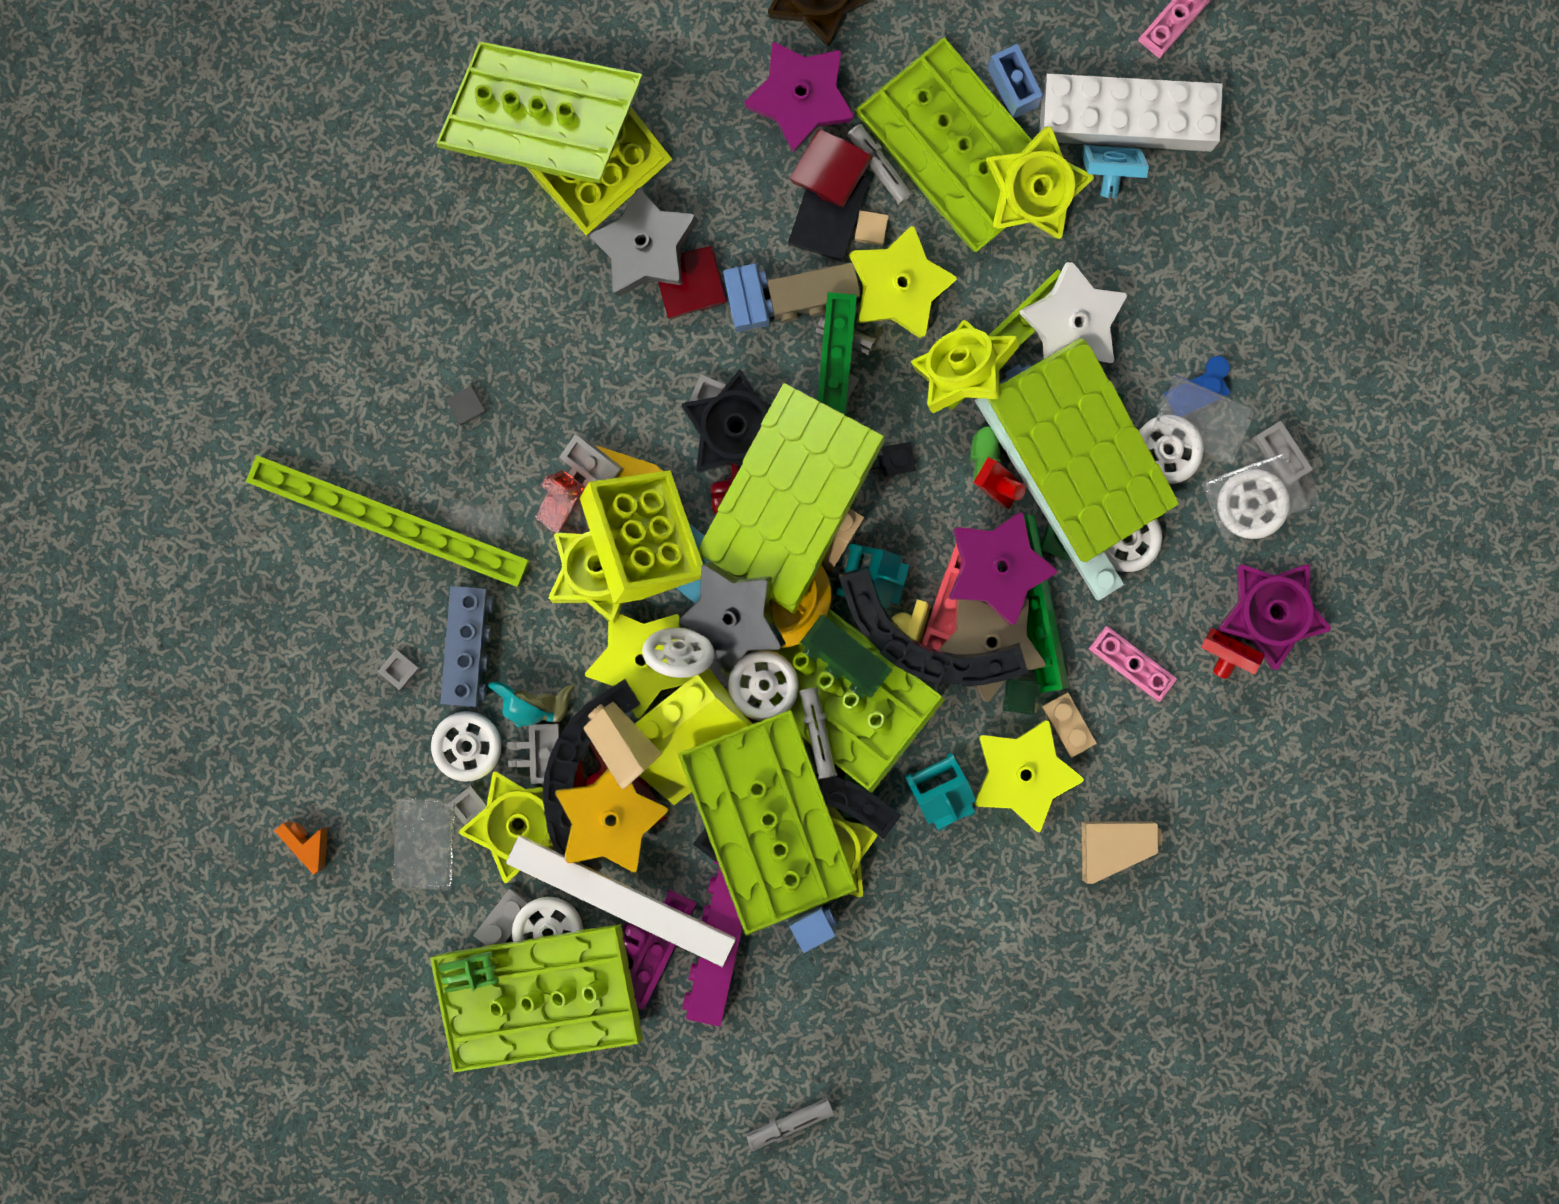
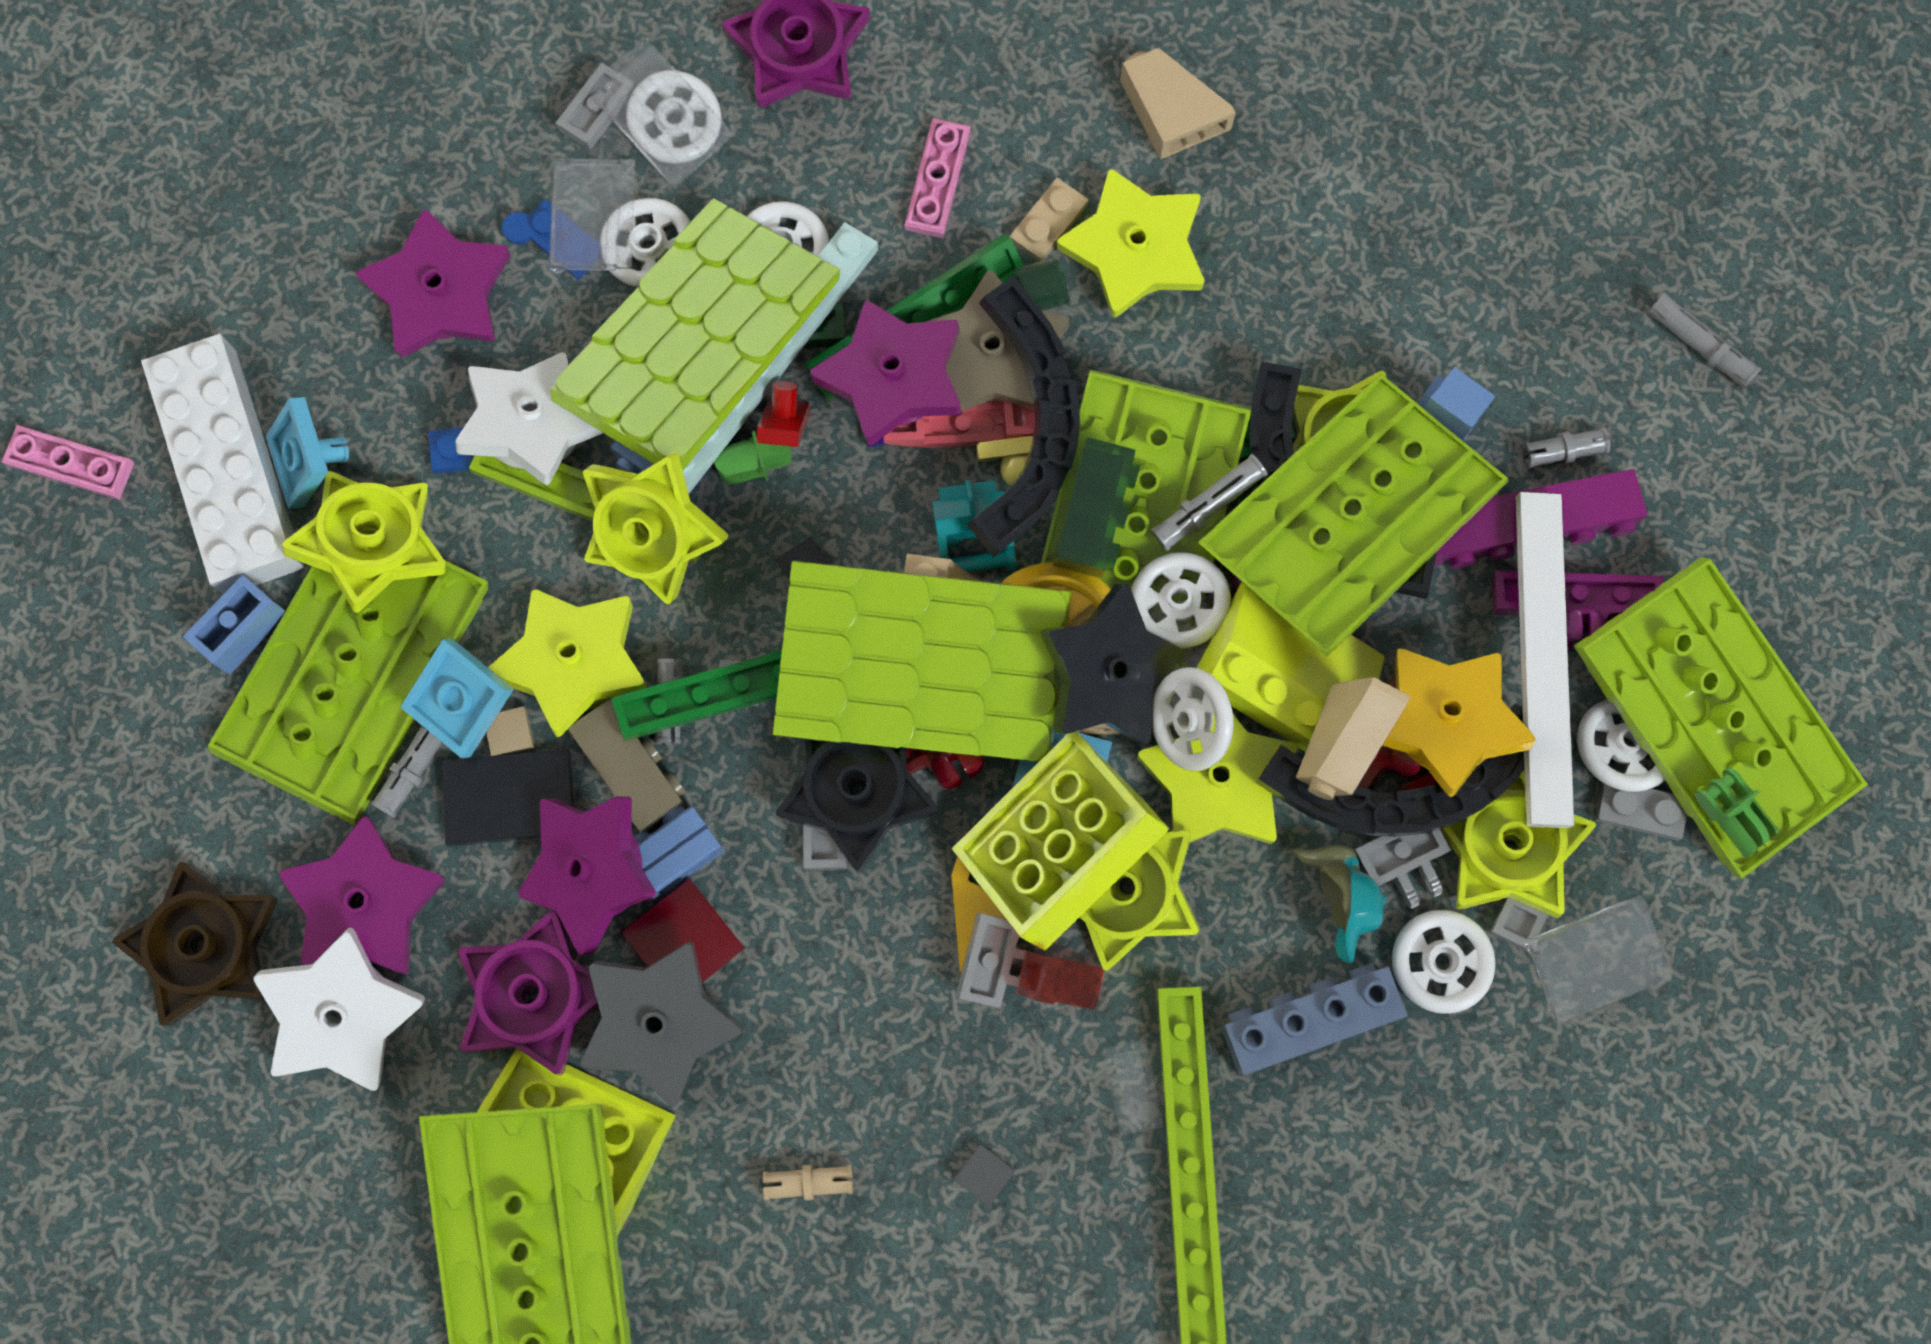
camera: 115 degrees left, 10 degrees down
(310, 851) = (1689, 1109): orange slope -> none
(398, 669) = (1386, 1102): light grey tile -> none
(509, 297) = (807, 1182): none -> tan pin
(696, 155) = (500, 985): none -> magenta plate
(736, 52) = (339, 982): none -> white plate
(757, 238) = (587, 868): none -> magenta plate
(758, 993) = (1566, 447): none -> light grey pin
(830, 168) = (448, 815): dark red slope -> none
(902, 200) = (456, 698): none -> medium azure tile
(946, 802) = (1216, 317): teal piece -> none
(1081, 258) = (444, 454): none -> blue plate
(1180, 310) = (452, 308): none -> magenta plate
(1231, 654) = (873, 66): red tile -> none

